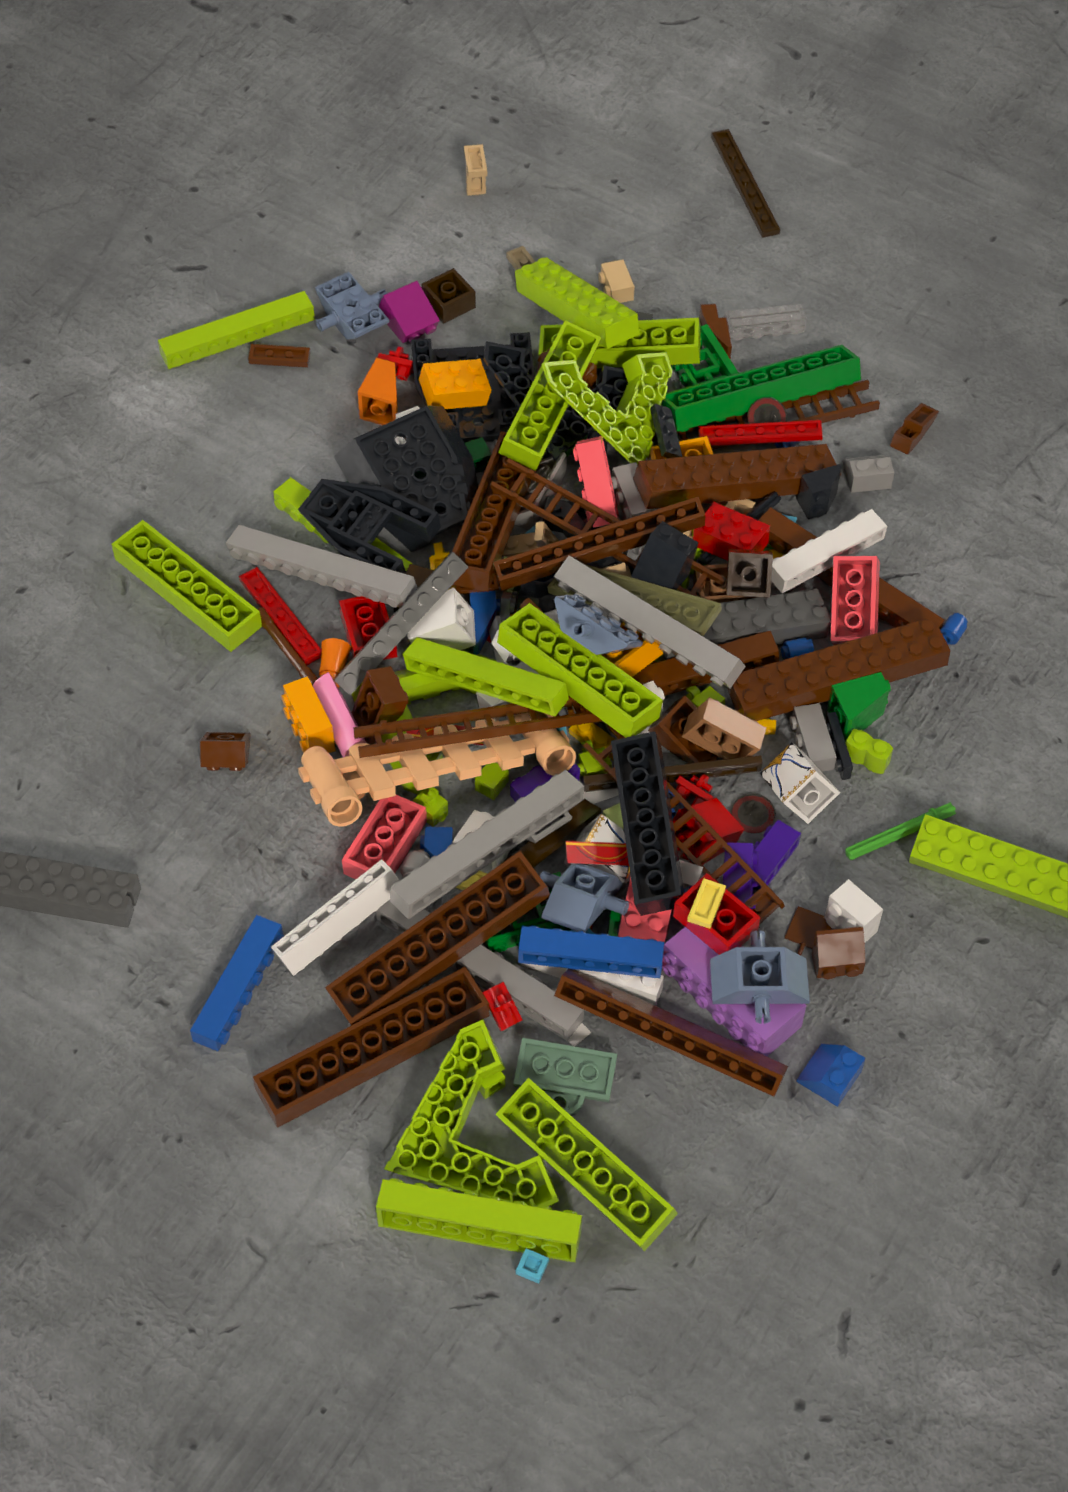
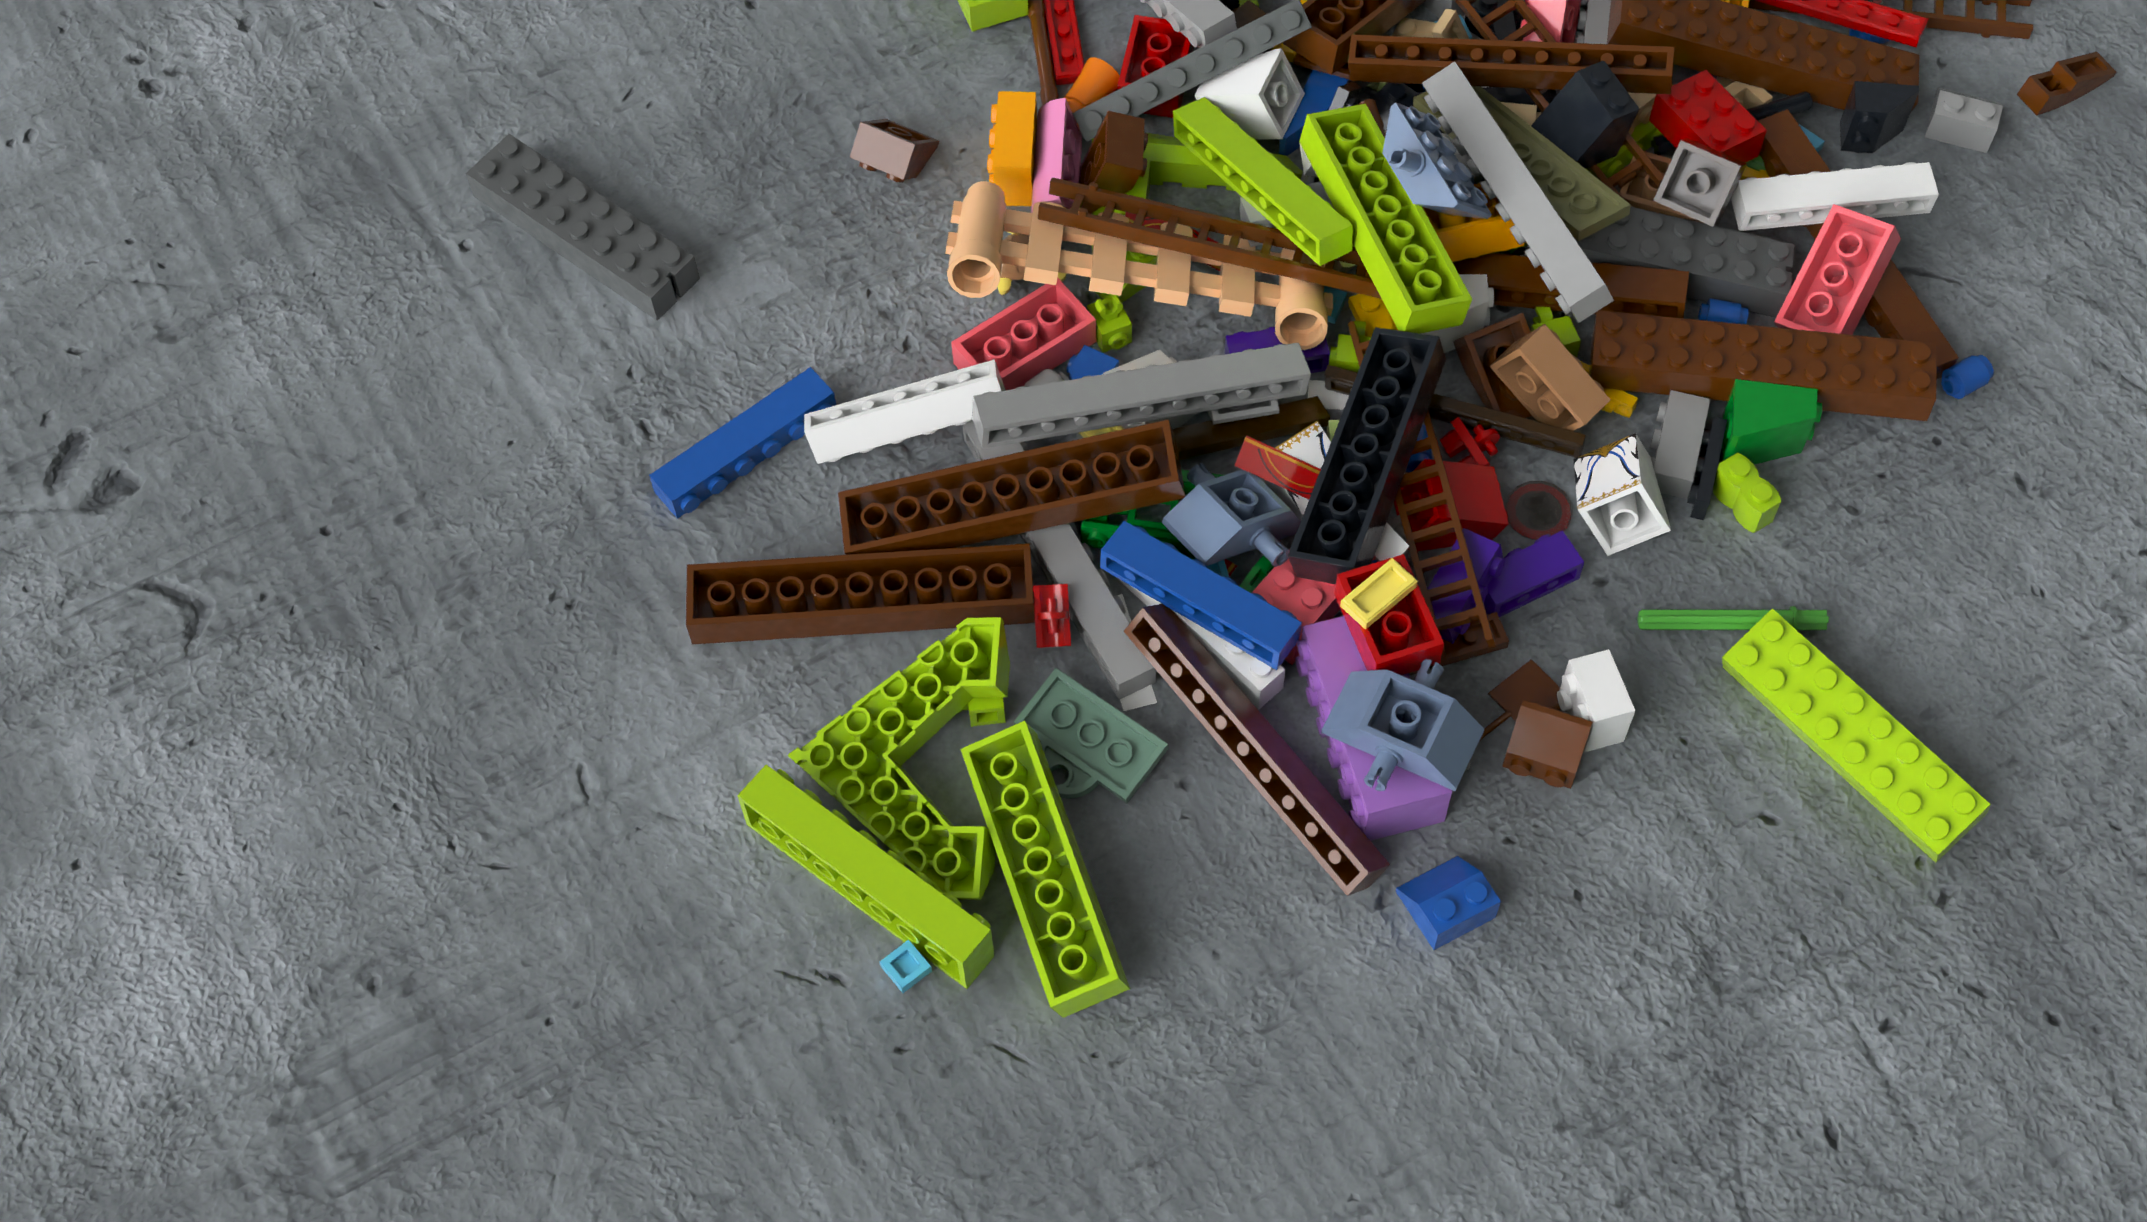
camera: 30 degrees right, 5 degrees up
(491, 780) = (1206, 324): lime brick -> none

